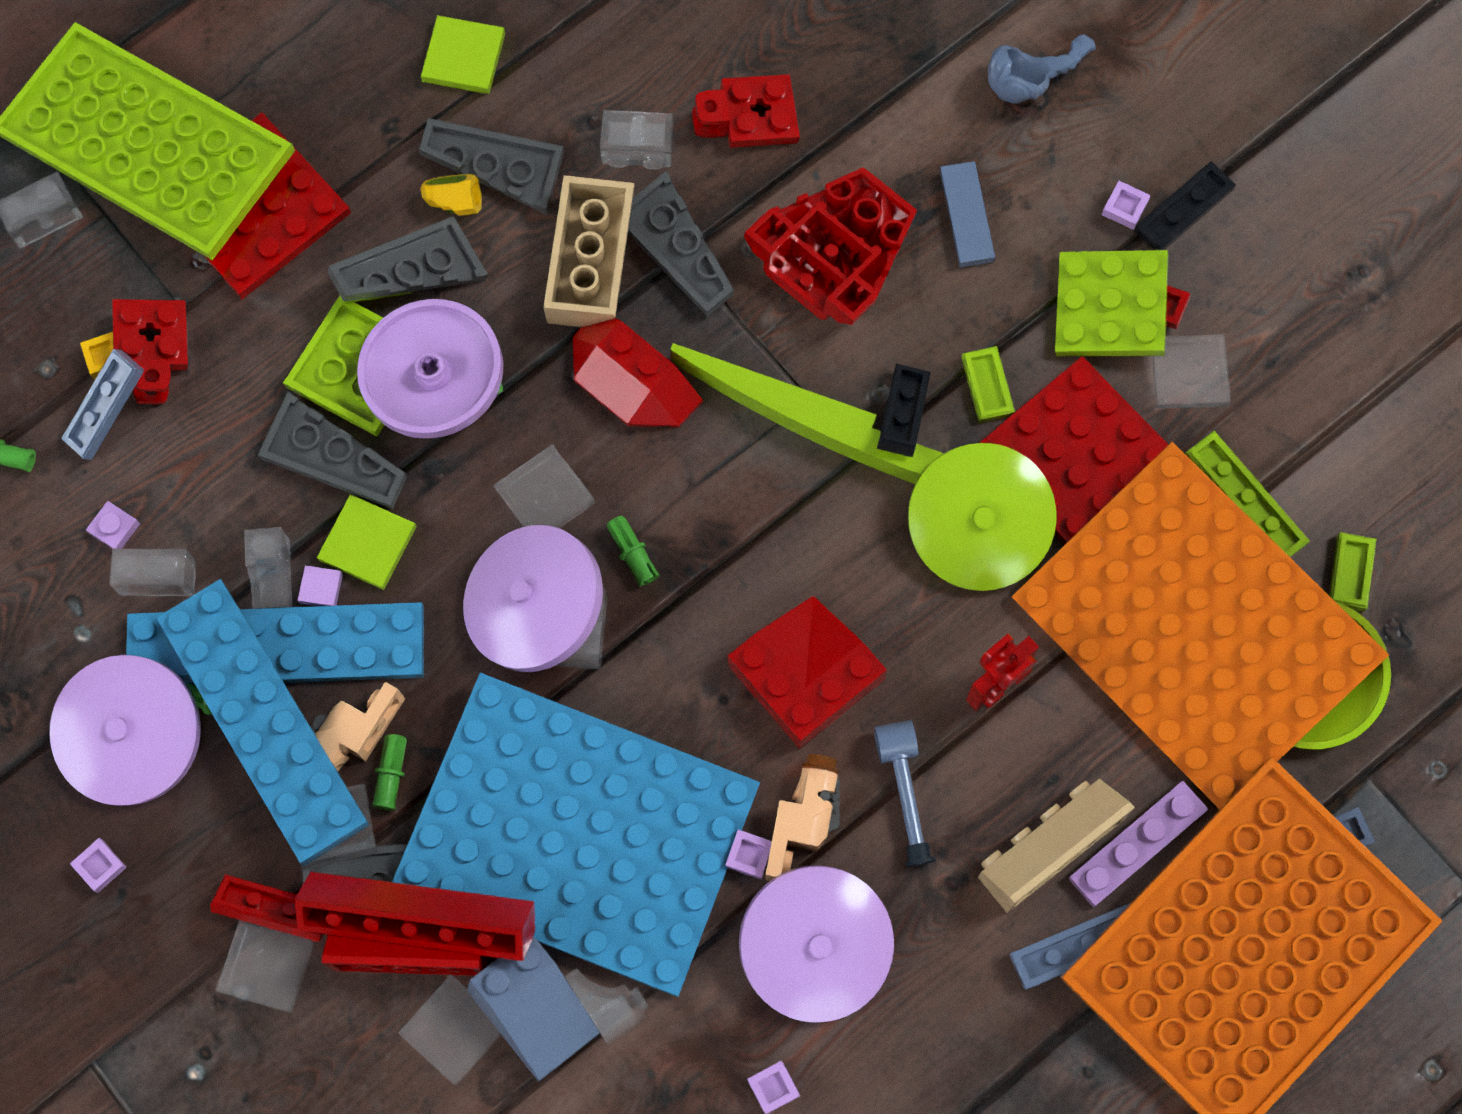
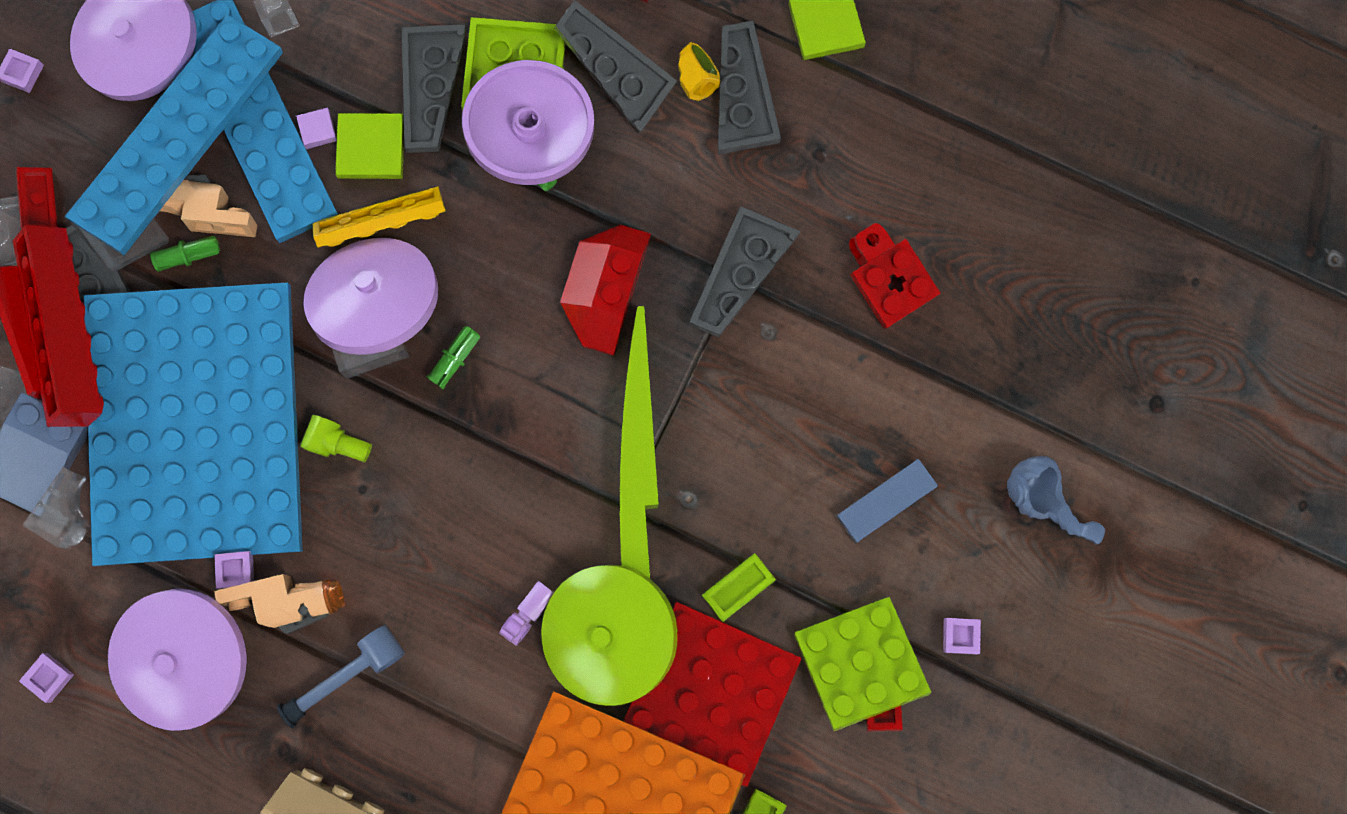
camera: 55 degrees right, 5 degrees up
(268, 567) = (312, 81): clear arch -> none
(449, 562) = (387, 214): none -> yellow plate
(544, 491) = (473, 264): clear tile -> none
(588, 251) = (693, 198): tan slope -> none
(637, 139) = (817, 195): clear brick -> none
(656, 708) = (327, 438): none -> lime pin
(806, 669) = (411, 545): red slope -> none
(834, 244) = (800, 401): red wedge -> none
(904, 410) = (675, 525): black tile -> none
(919, 581) = (530, 609): none -> lavender bar
(1003, 666) = (470, 716): red plate -> none
(1185, 207) = (987, 689): black tile -> none
(1192, 372) = (833, 762): clear tile -> none

